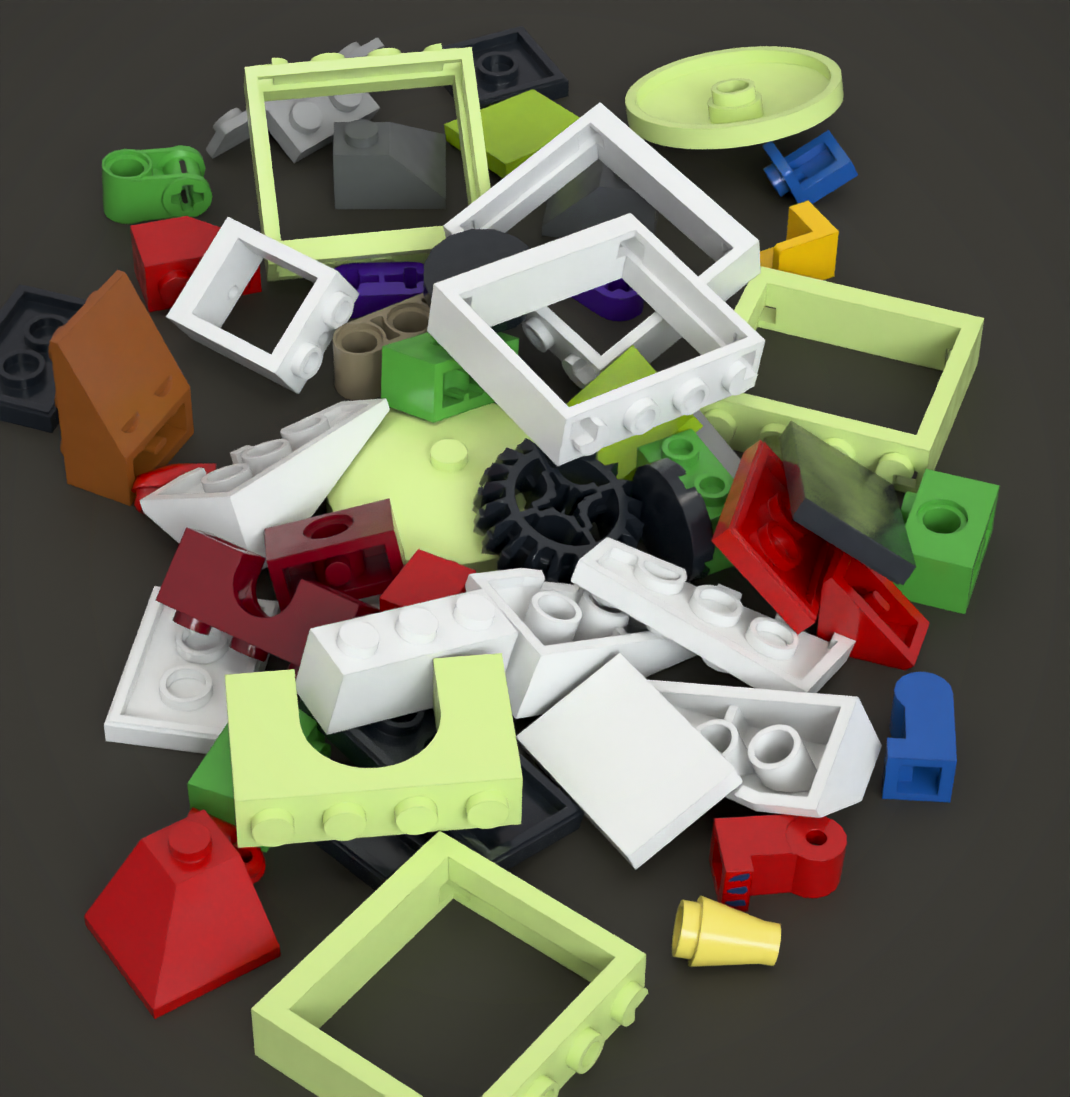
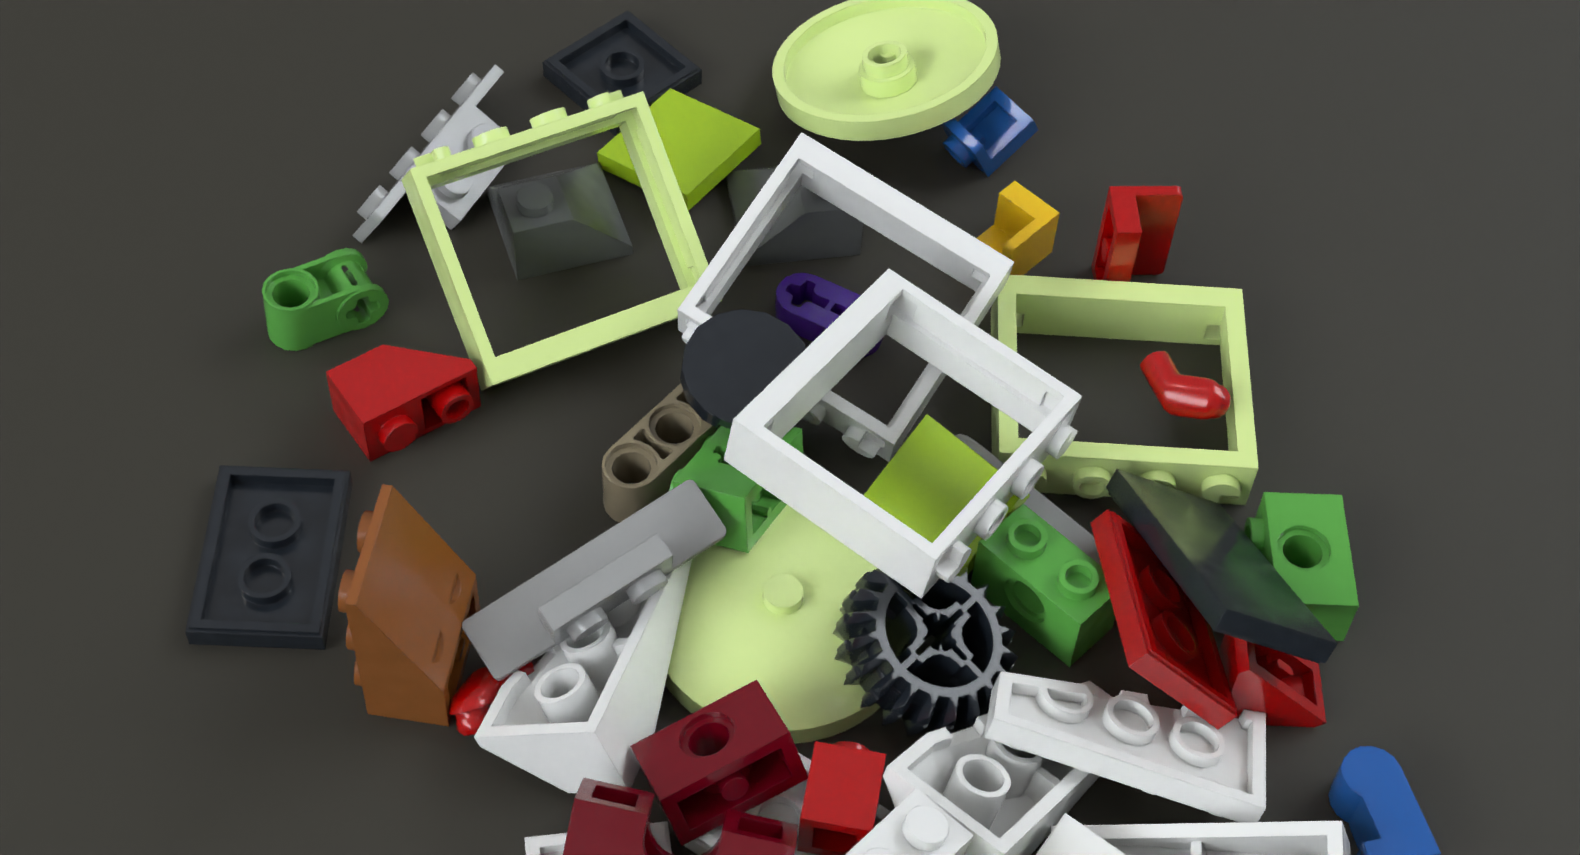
camera: 20 degrees left, 10 degrees up
(221, 281) = (452, 426): white window -> none
(287, 407) = (594, 580): none -> light grey bracket
(382, 284) = (612, 378): dark purple beam -> none
(673, 518) = (1051, 632): black tile -> none
(884, 380) = (1184, 394): none -> red arm
(903, 253) = (1136, 231): none -> red panel

